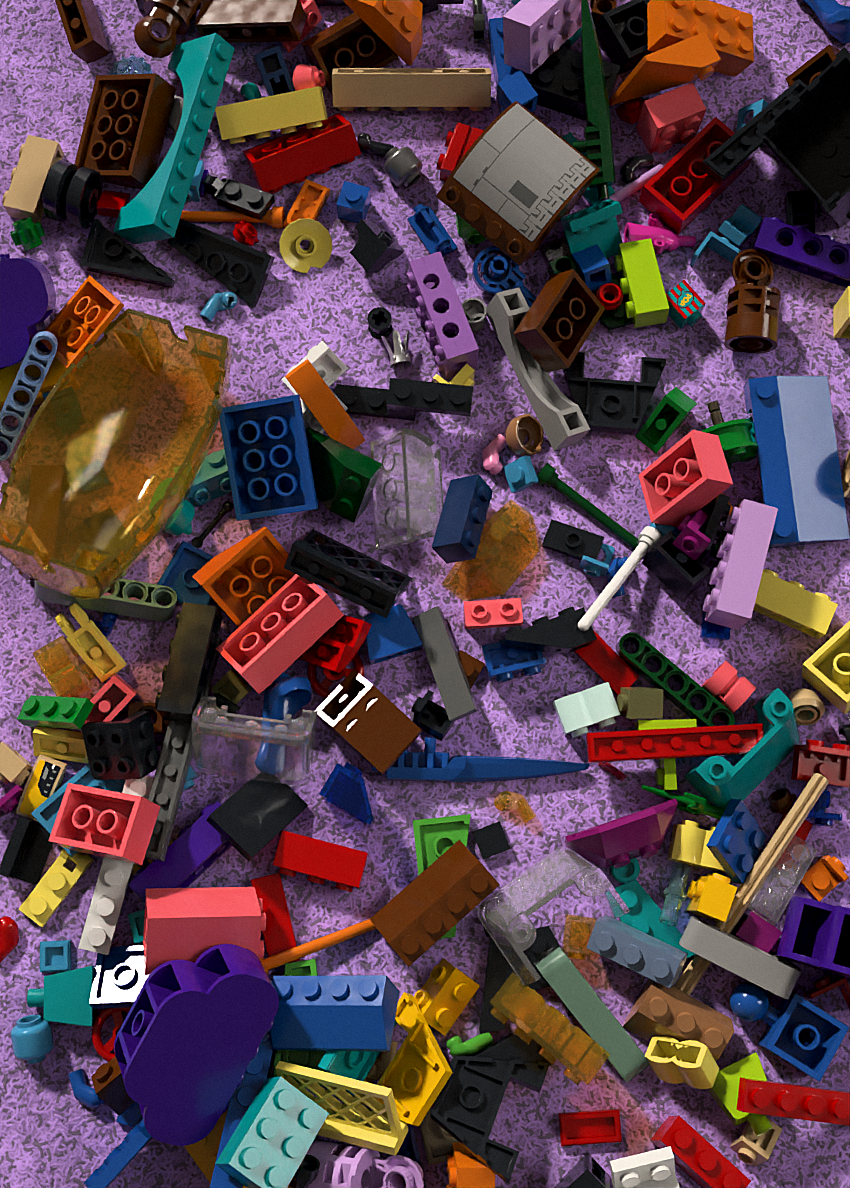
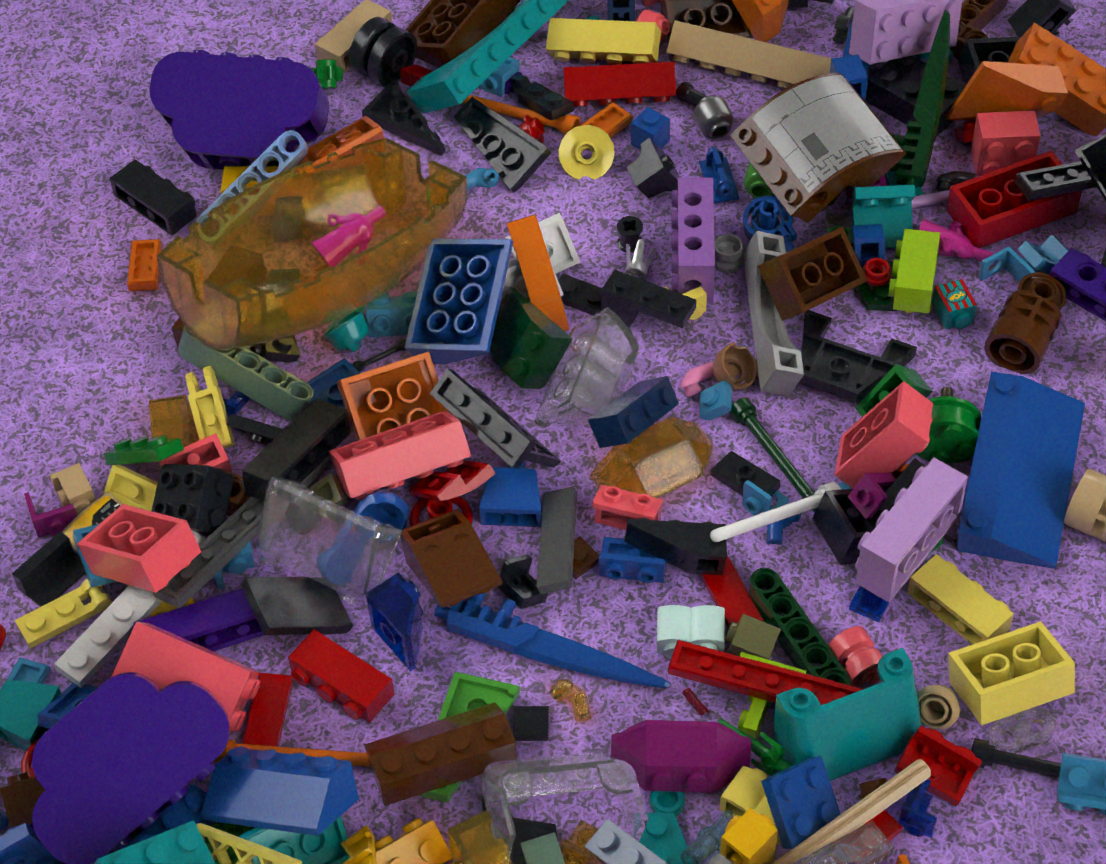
camera: 25 degrees right, 25 degrees down
(134, 428) = (355, 231): none -> dark pink piece
(142, 644) = (258, 431): none -> black plate

